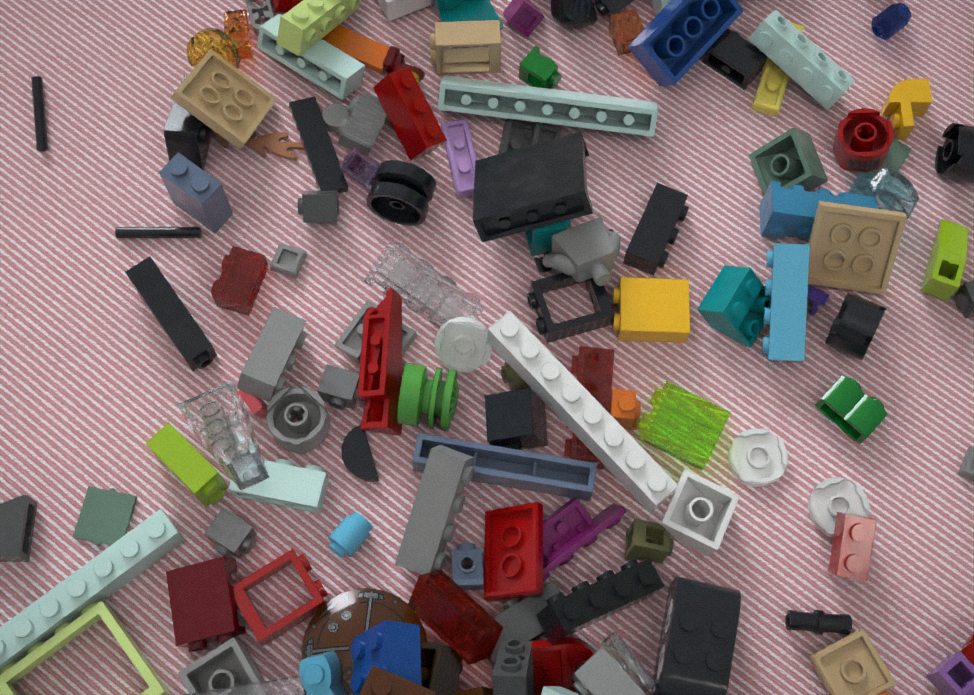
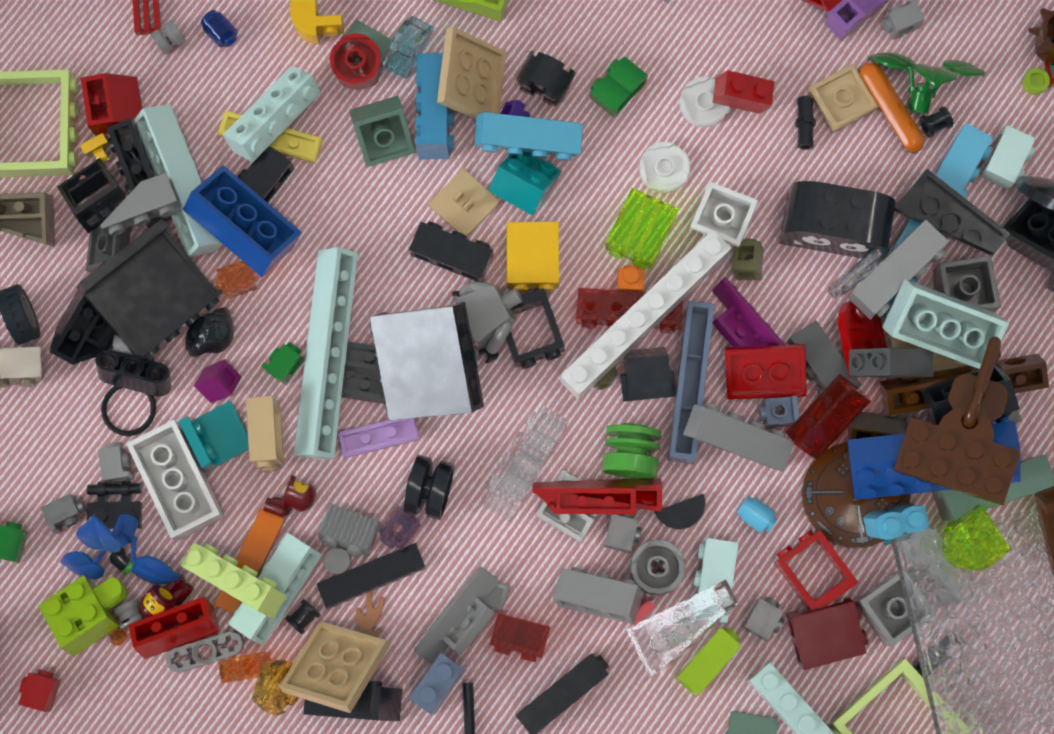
camera: 85 degrees left, 10 degrees up
(265, 224) = (461, 619): none -> light grey bracket
(282, 83) = (302, 616): none -> black bush
(319, 206) = (441, 566): dark grey brick -> none
(409, 113) = (343, 484): red brick -> none
(463, 344) = (578, 423): white tile -> none
(599, 600) = (806, 297): black brick -> none
(711, 247) = (464, 203): none -> tan piece

